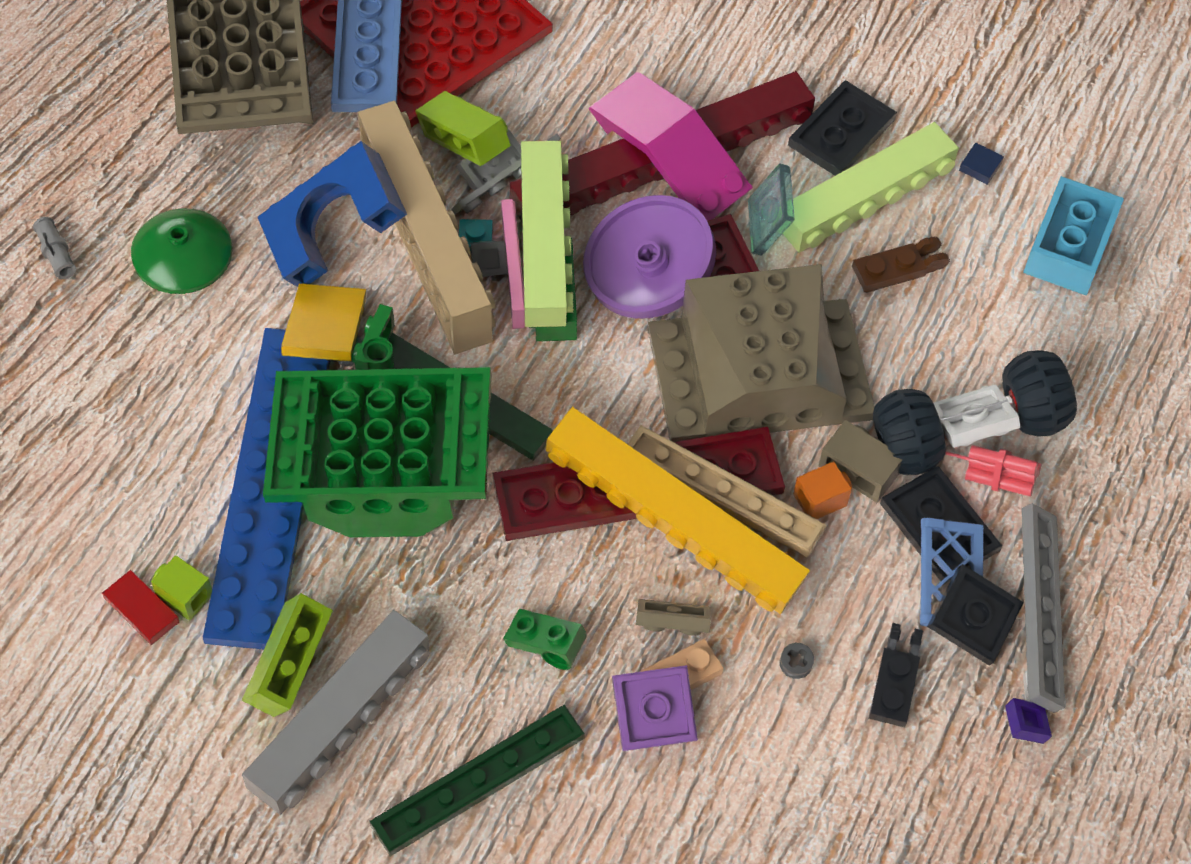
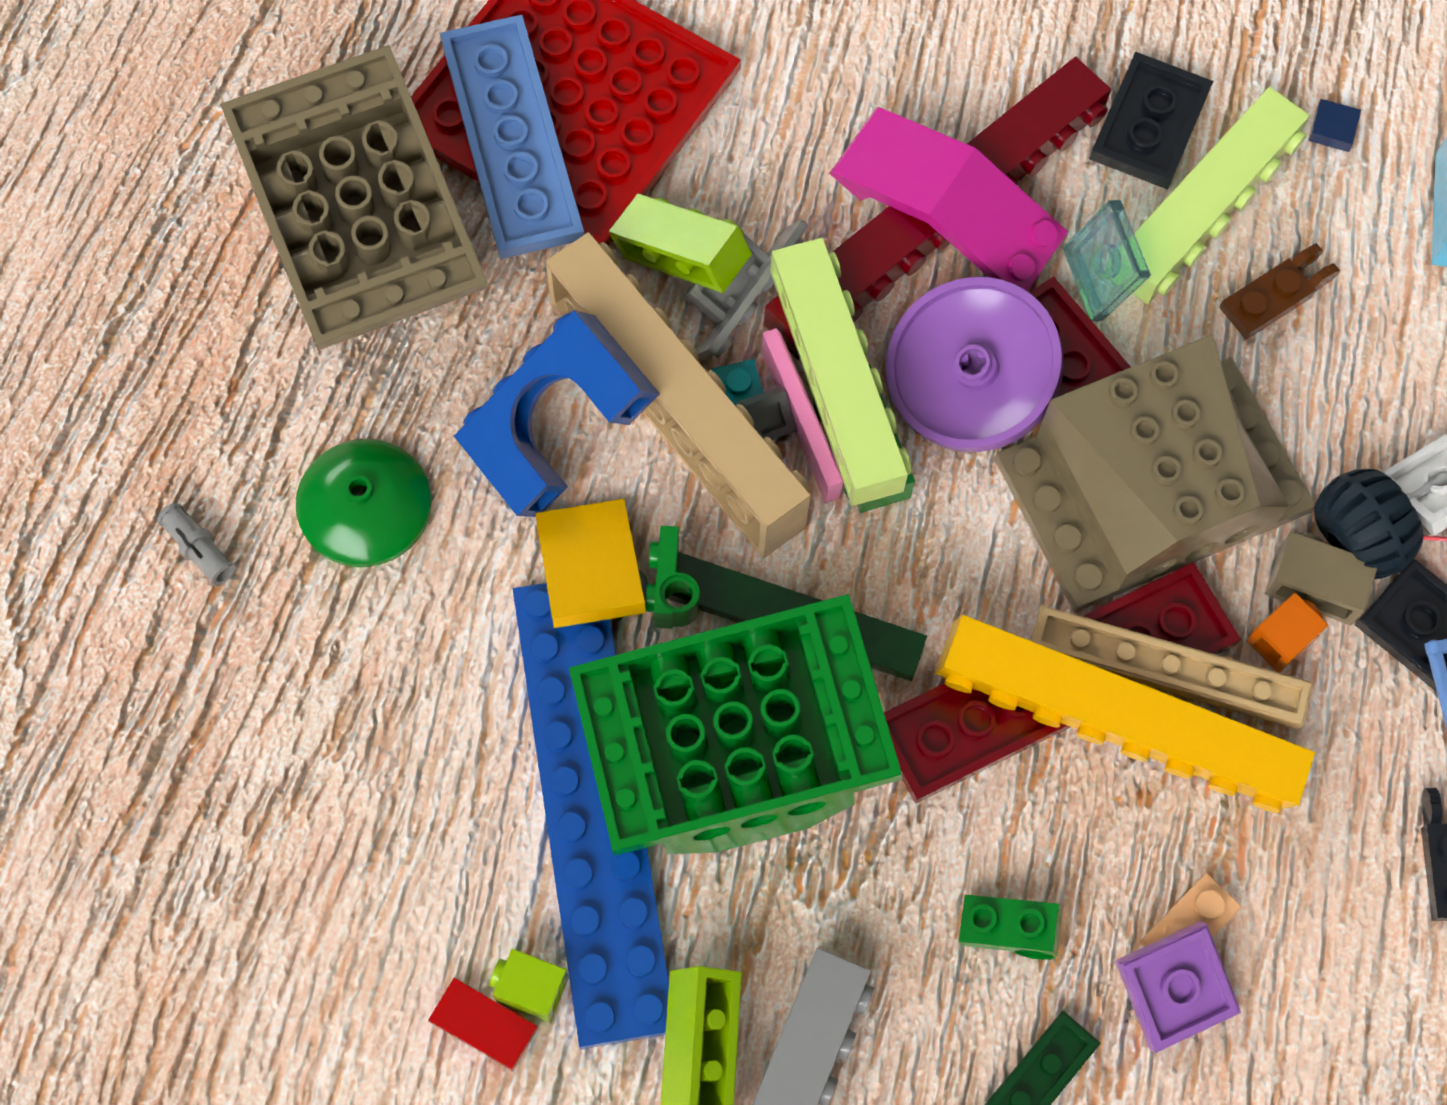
camera: 15 degrees left, 10 degrees up
(684, 617) = (1160, 853): dark tan plate -> none
(798, 671) = (1338, 864): dark grey bush -> none

